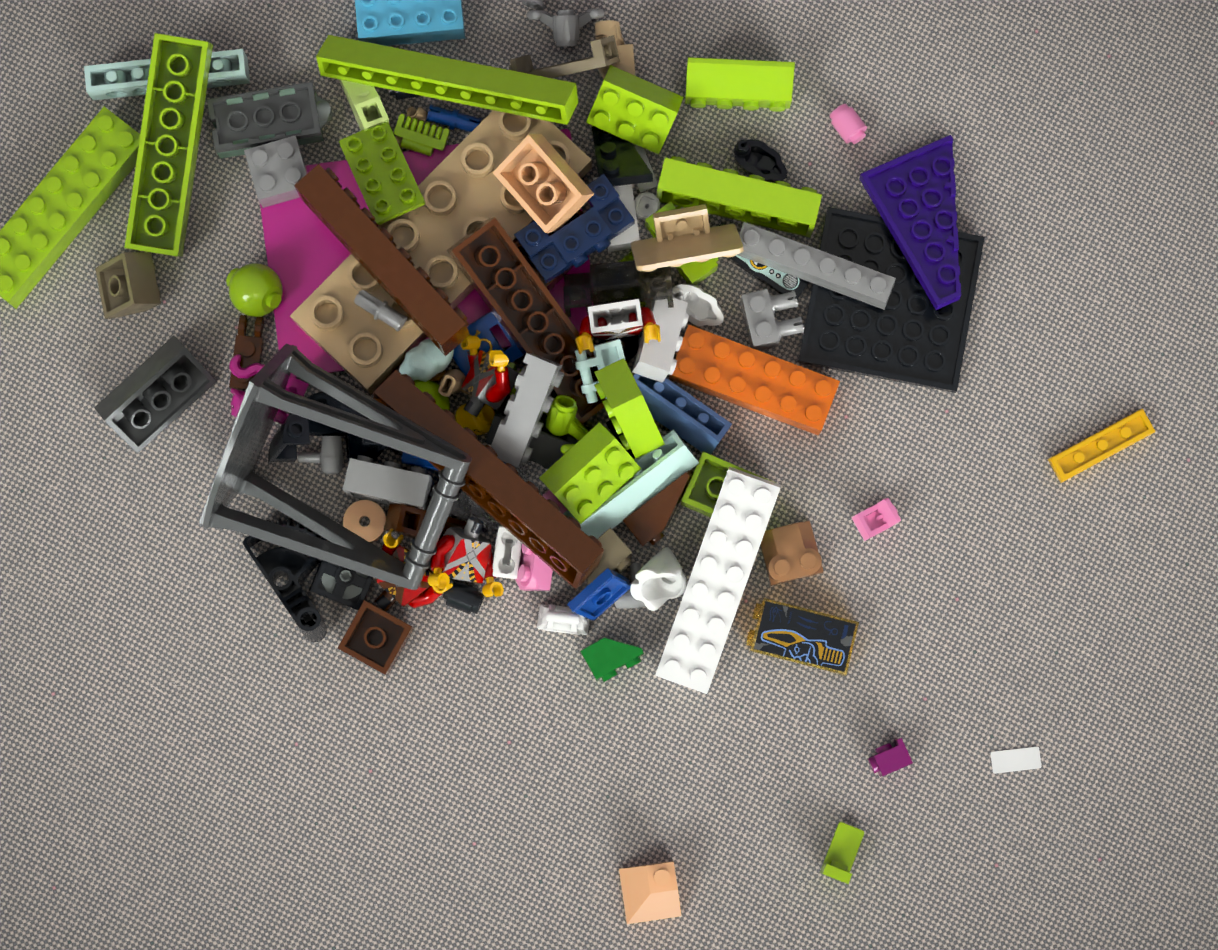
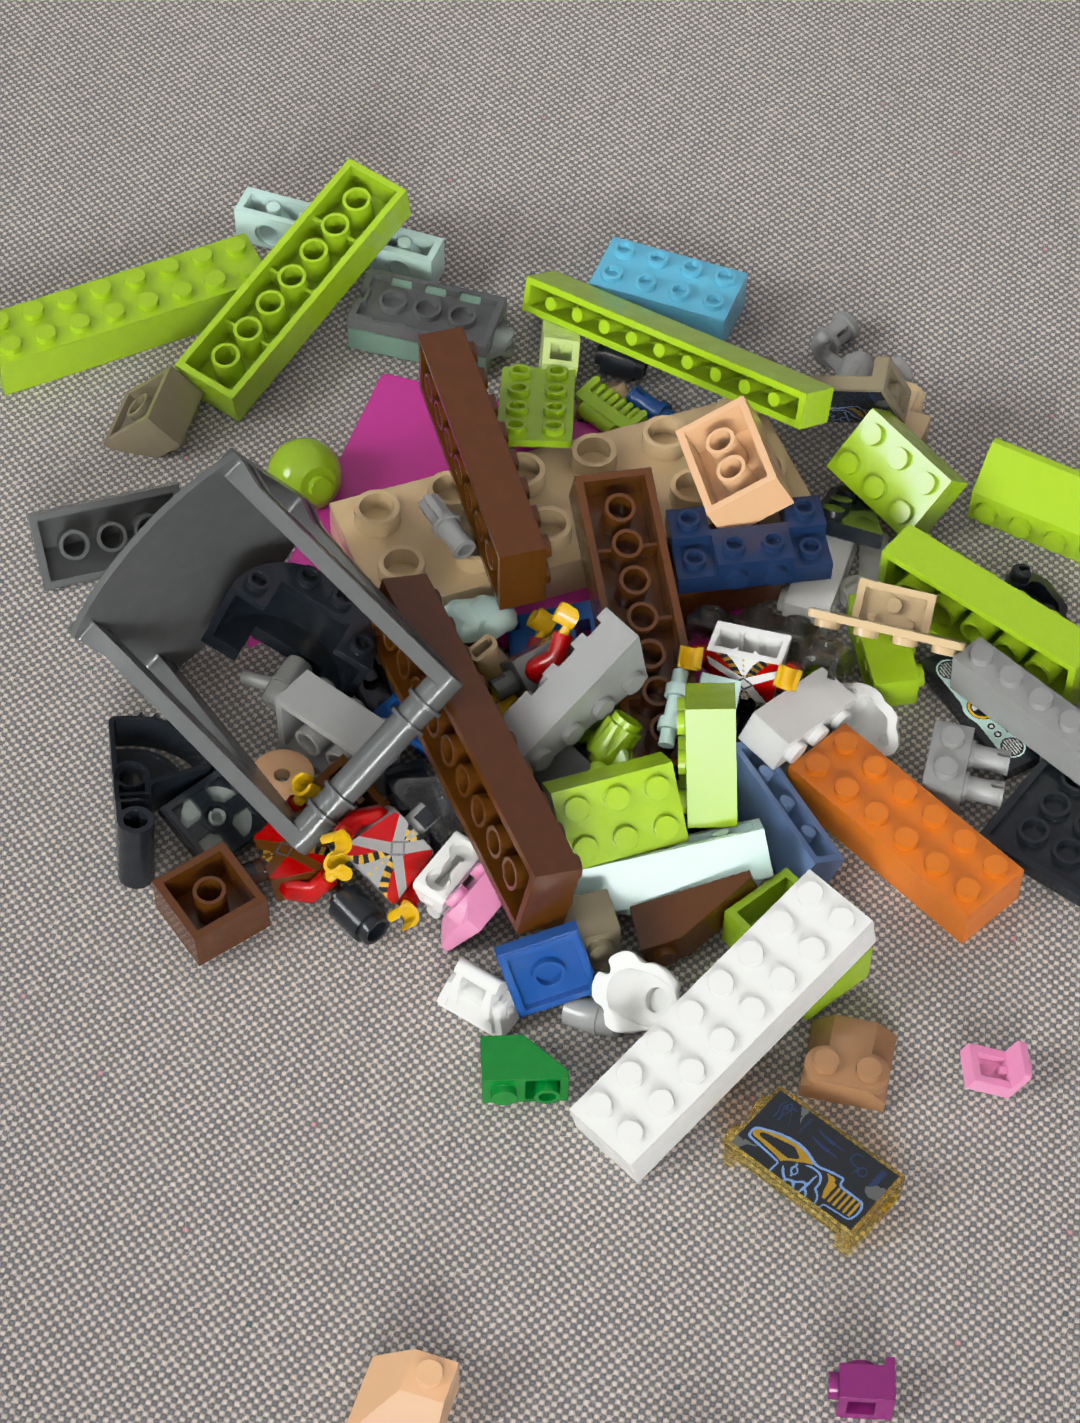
camera: 25 degrees right, 30 degrees down
(276, 170) = (395, 373): light grey brick -> none

